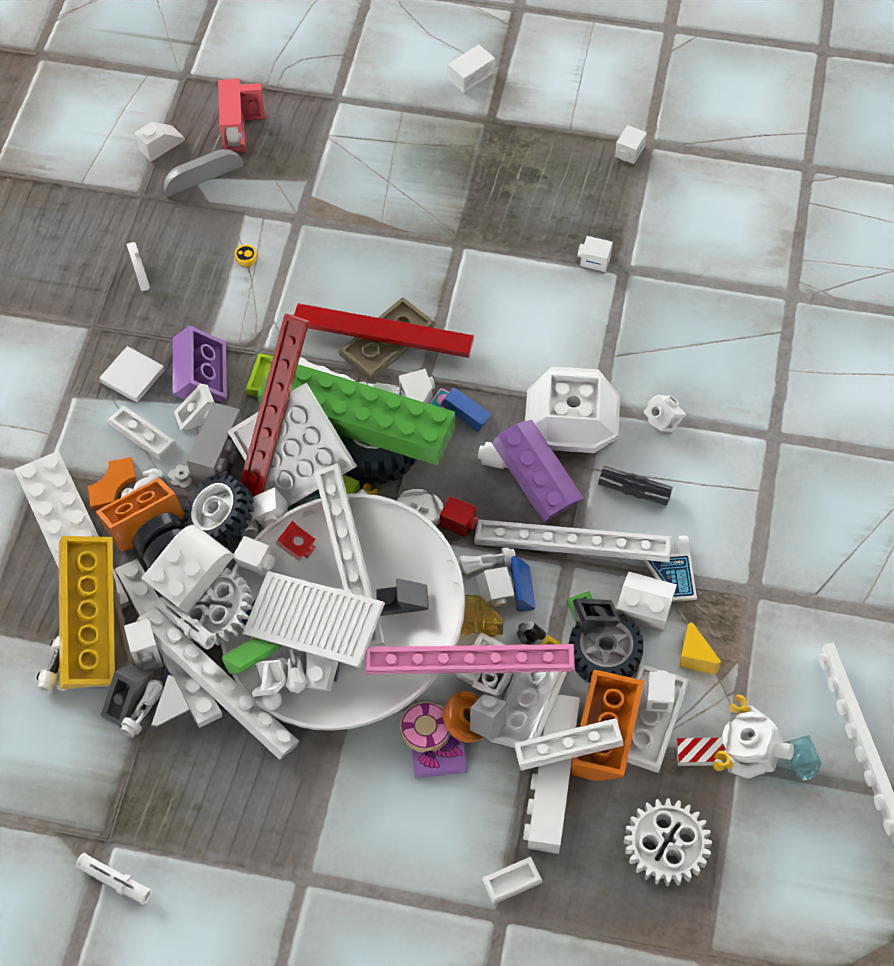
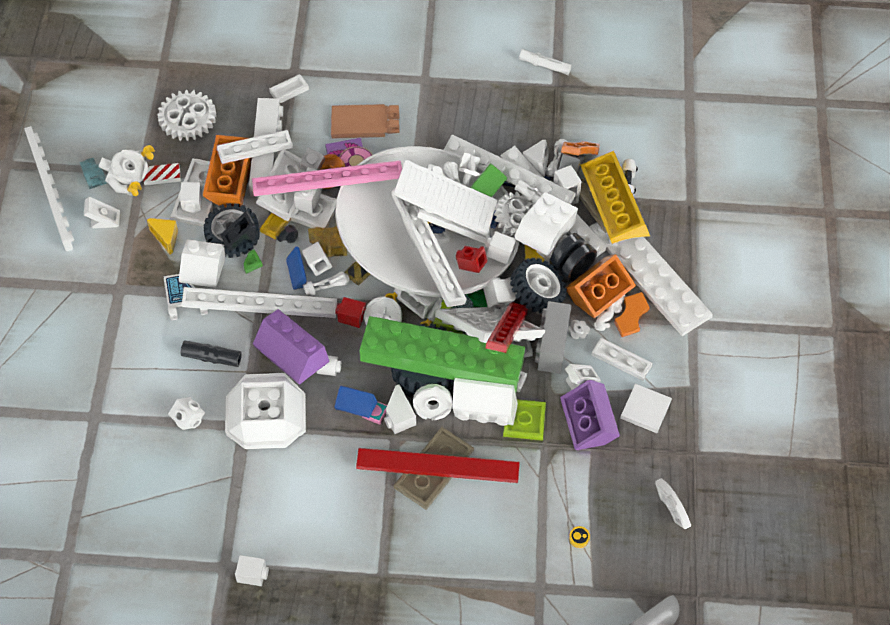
camera: 170 degrees right, 0 degrees up
(116, 704) = (580, 148): none -> orange tile
(403, 598) = (382, 221): black slope -> none
(406, 806) = (364, 120): none -> nougat tile
(784, 688) = (101, 214): none -> white slope

